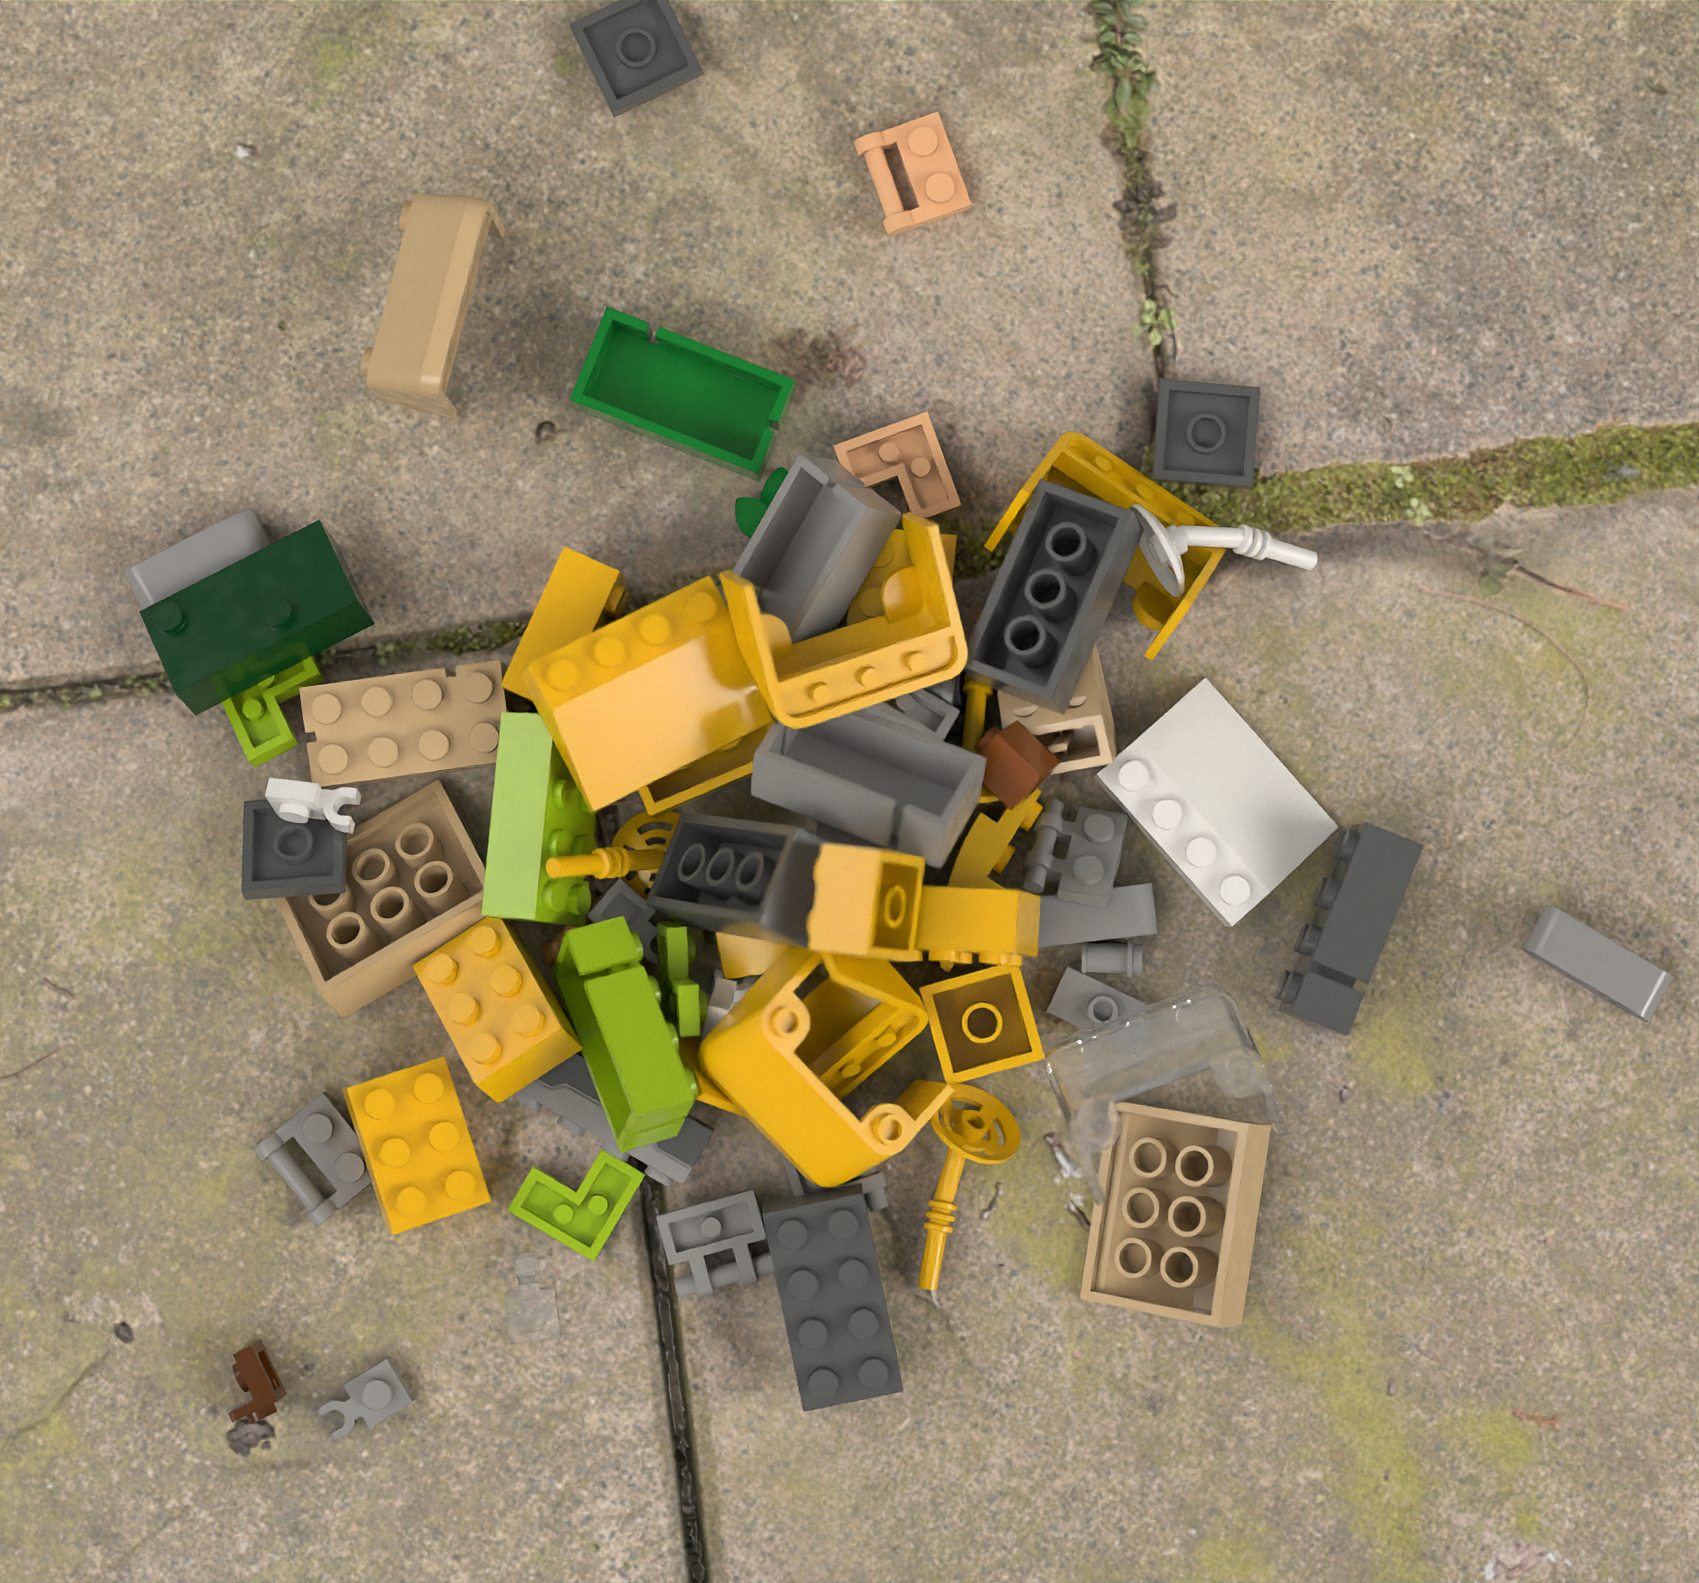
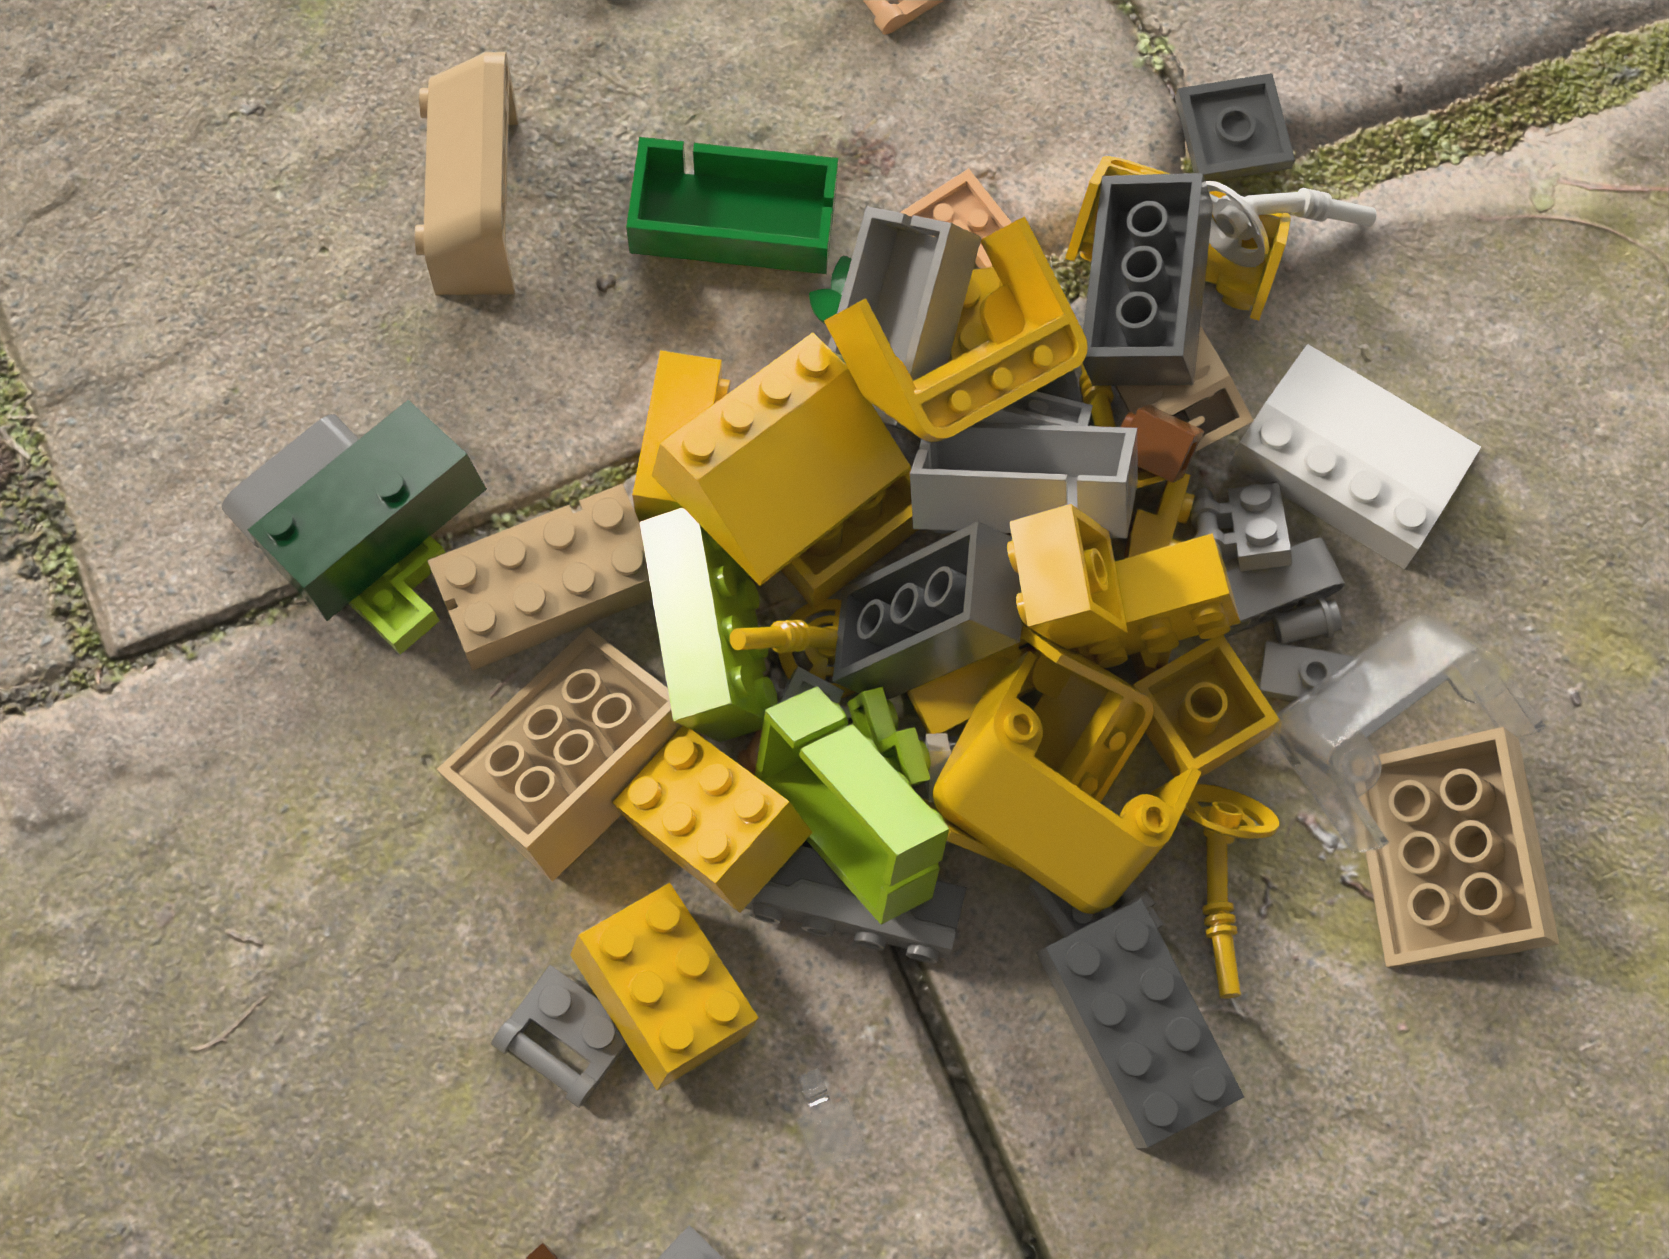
camera: 25 degrees left, 15 degrees down
(289, 856) = (459, 722): dark grey plate -> none
(304, 800) = (462, 668): white plate -> none
(580, 1216) = (850, 1020): lime plate -> none
(711, 1228) = (991, 994): light grey plate -> none
(1349, 927) = (1528, 522): dark grey piece -> none

